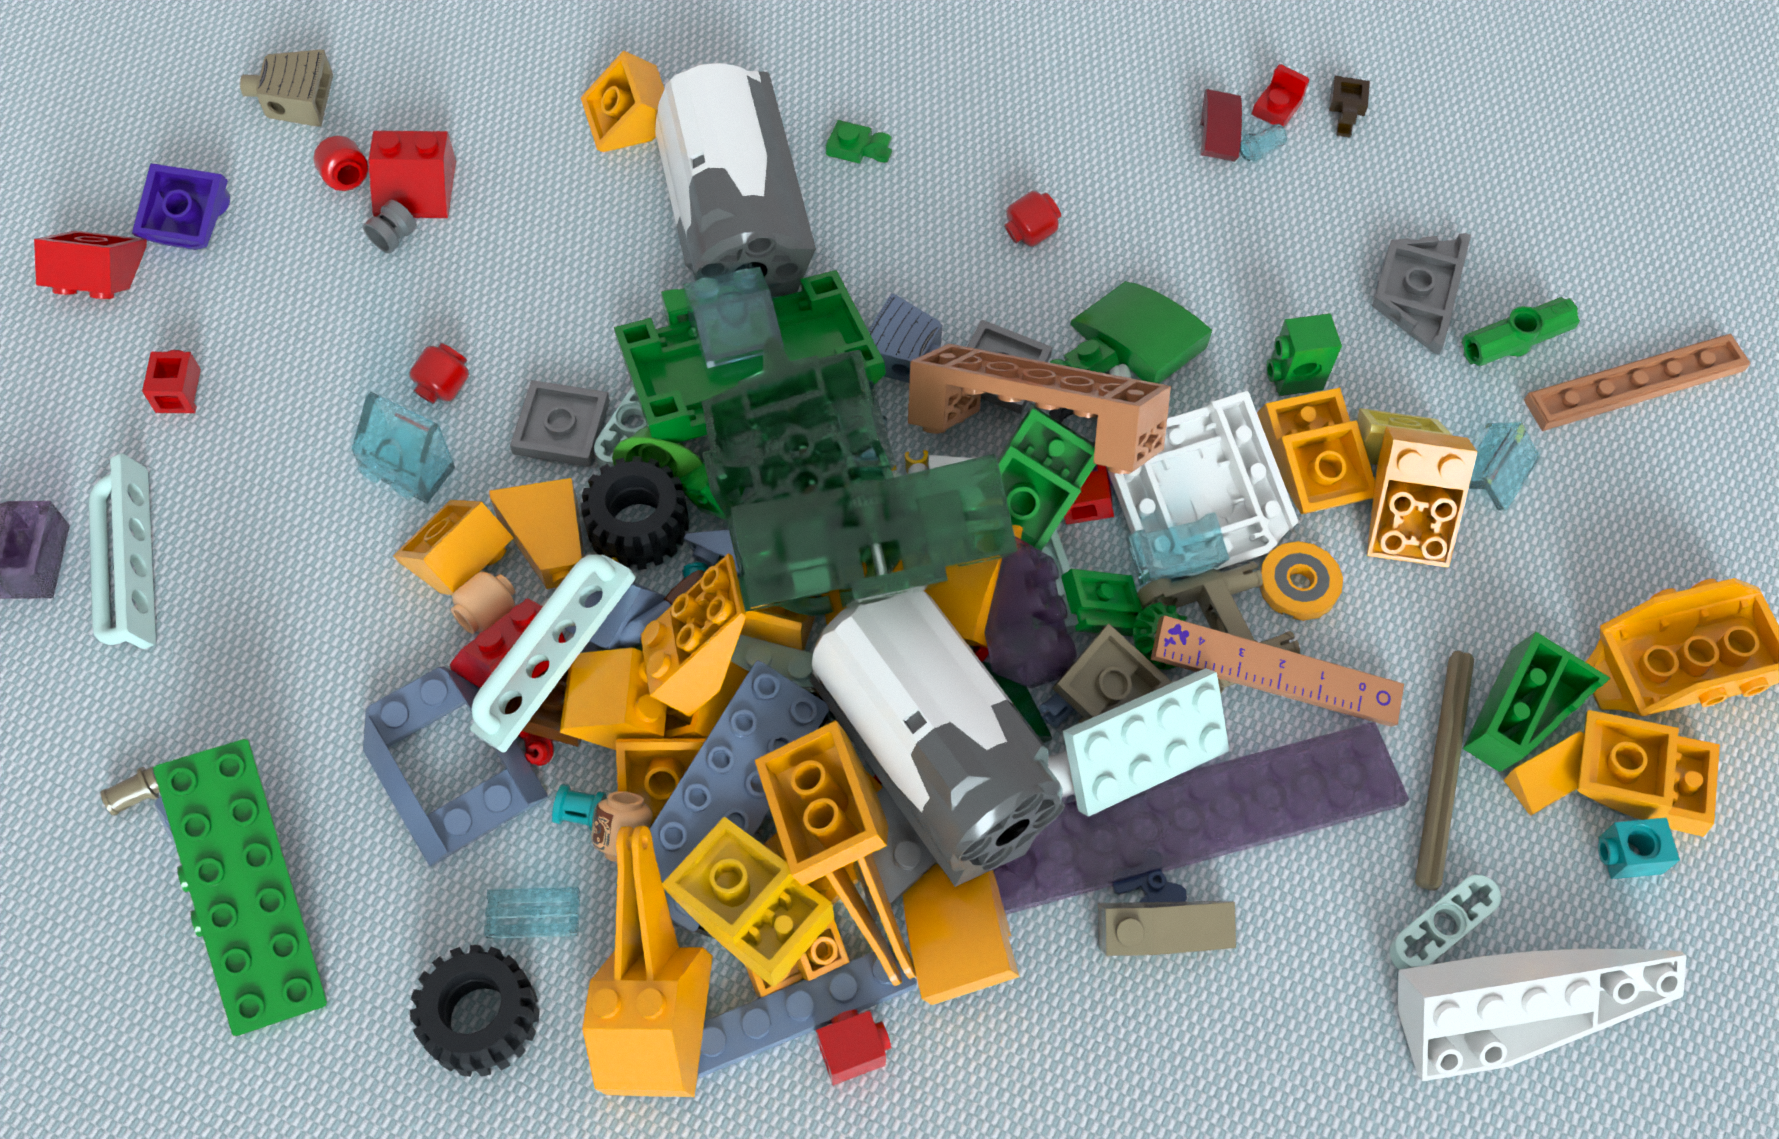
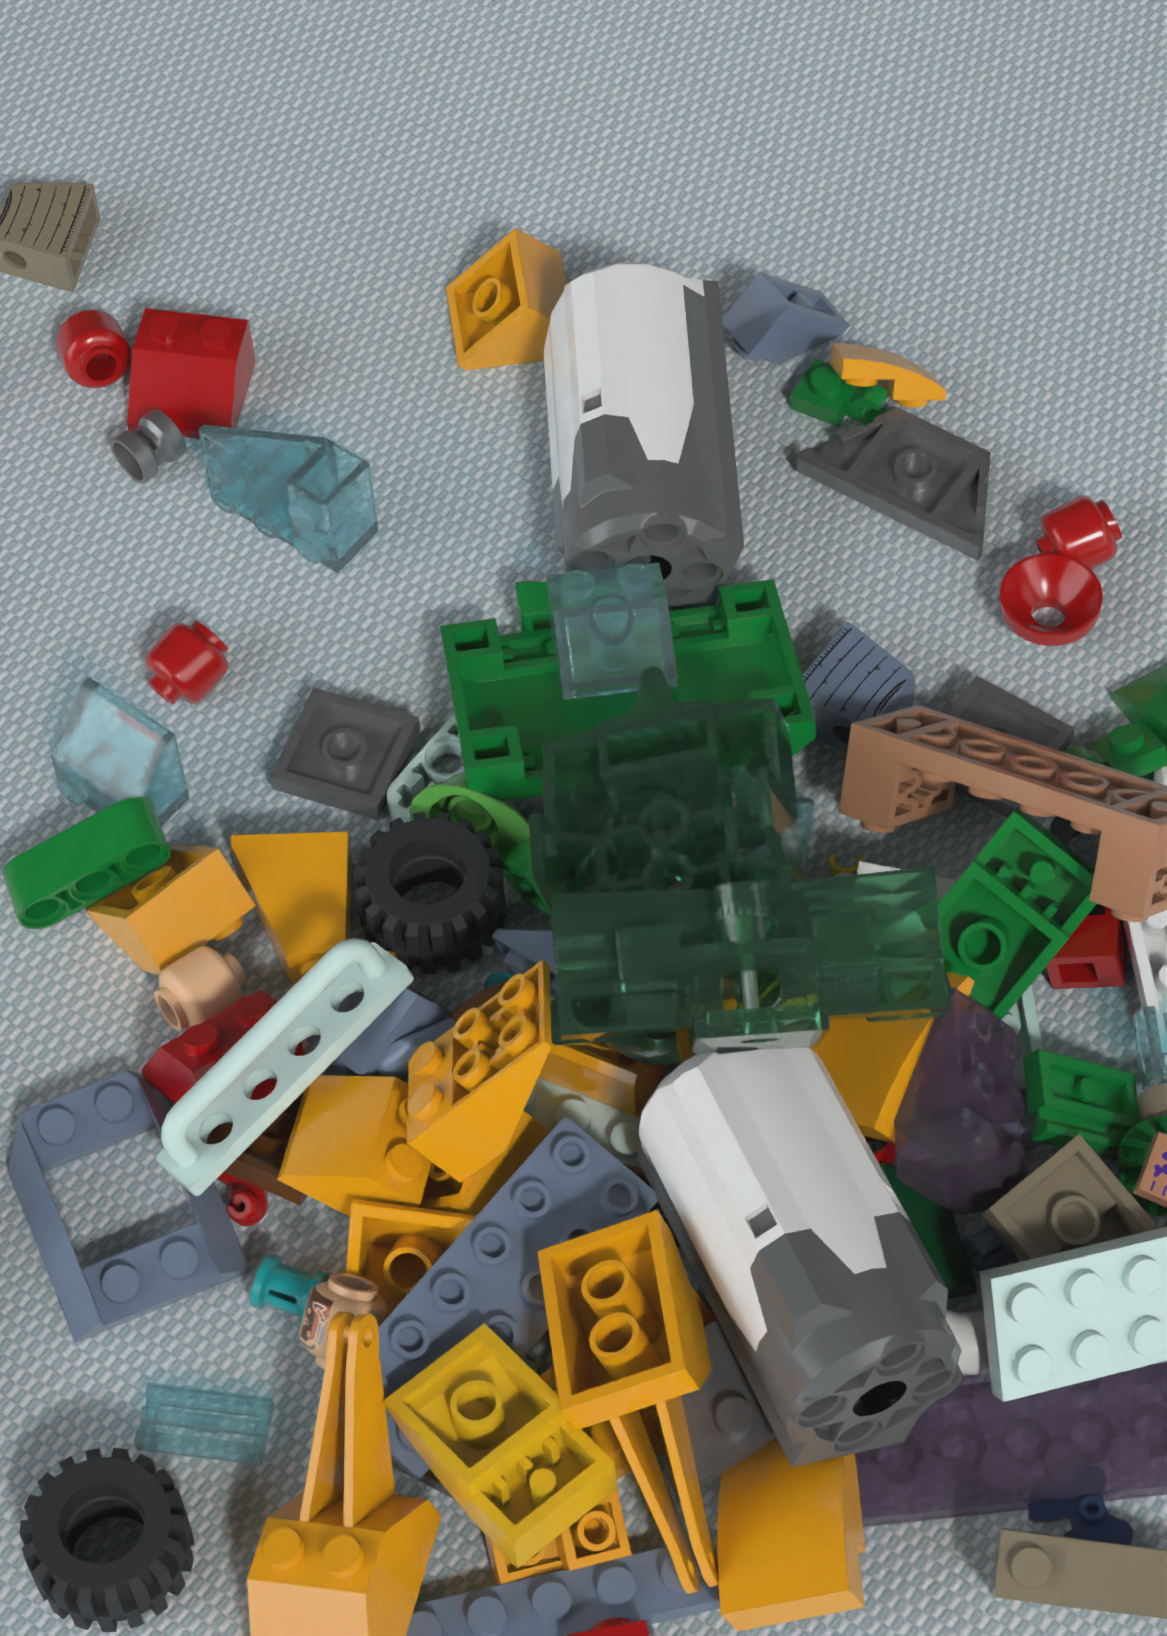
camera: 15 degrees right, 5 degrees down
(388, 522) = (86, 863): none -> green beam
(496, 244) = (293, 490): none -> clear light blue slope
(811, 96) = (781, 320): none -> sand blue slope
(877, 120) = (903, 379): none -> light orange slope
(914, 191) = (911, 476): none -> flat silver wing
(1024, 252) = (1054, 583): none -> red piece

